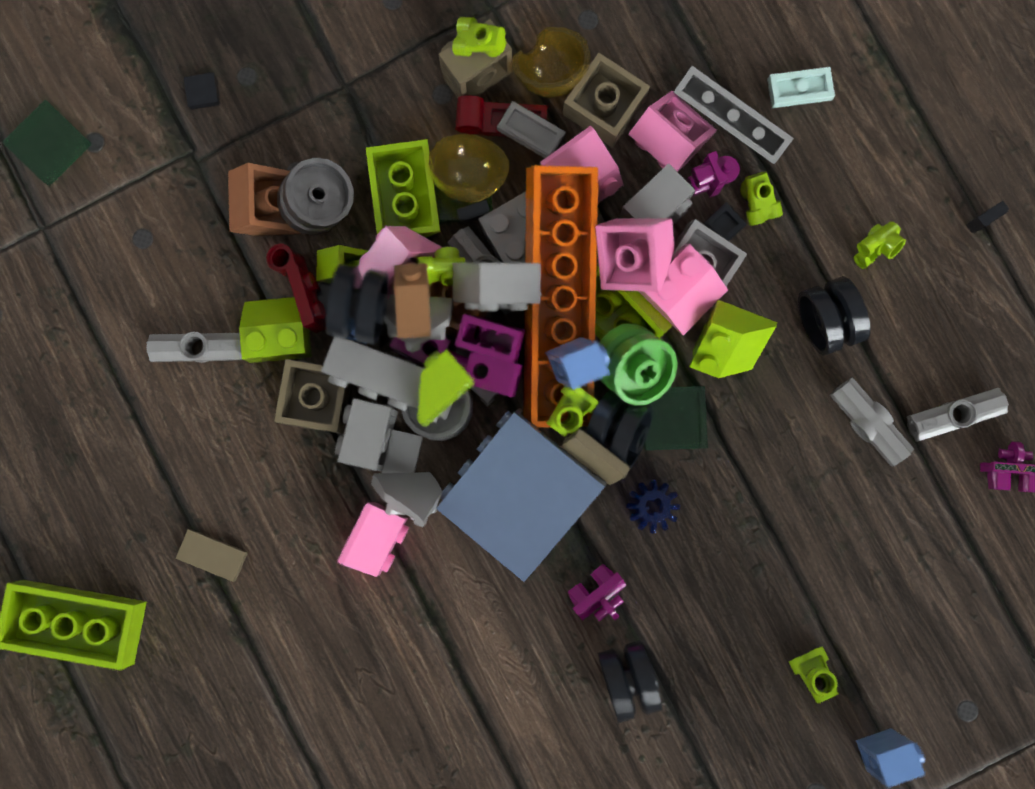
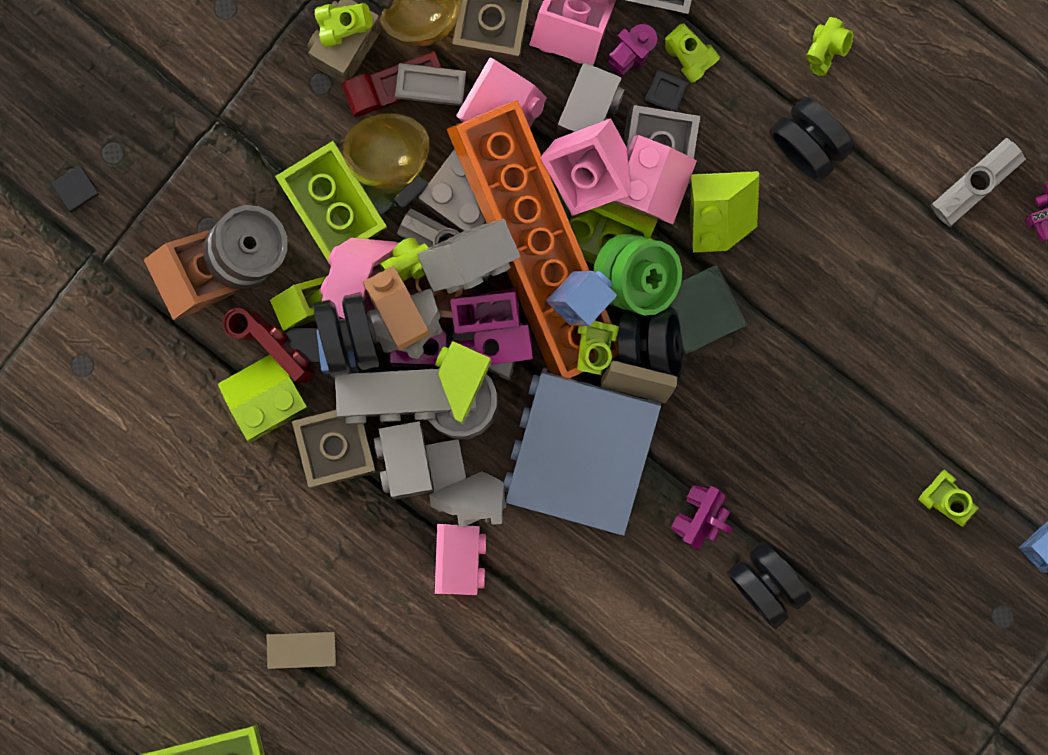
camera: 25 degrees left, 0 degrees up
(179, 347) = (173, 459): light grey piece -> none
(653, 517) = (710, 397): clear blue gear -> none
(872, 422) = (897, 227): light grey piece -> none

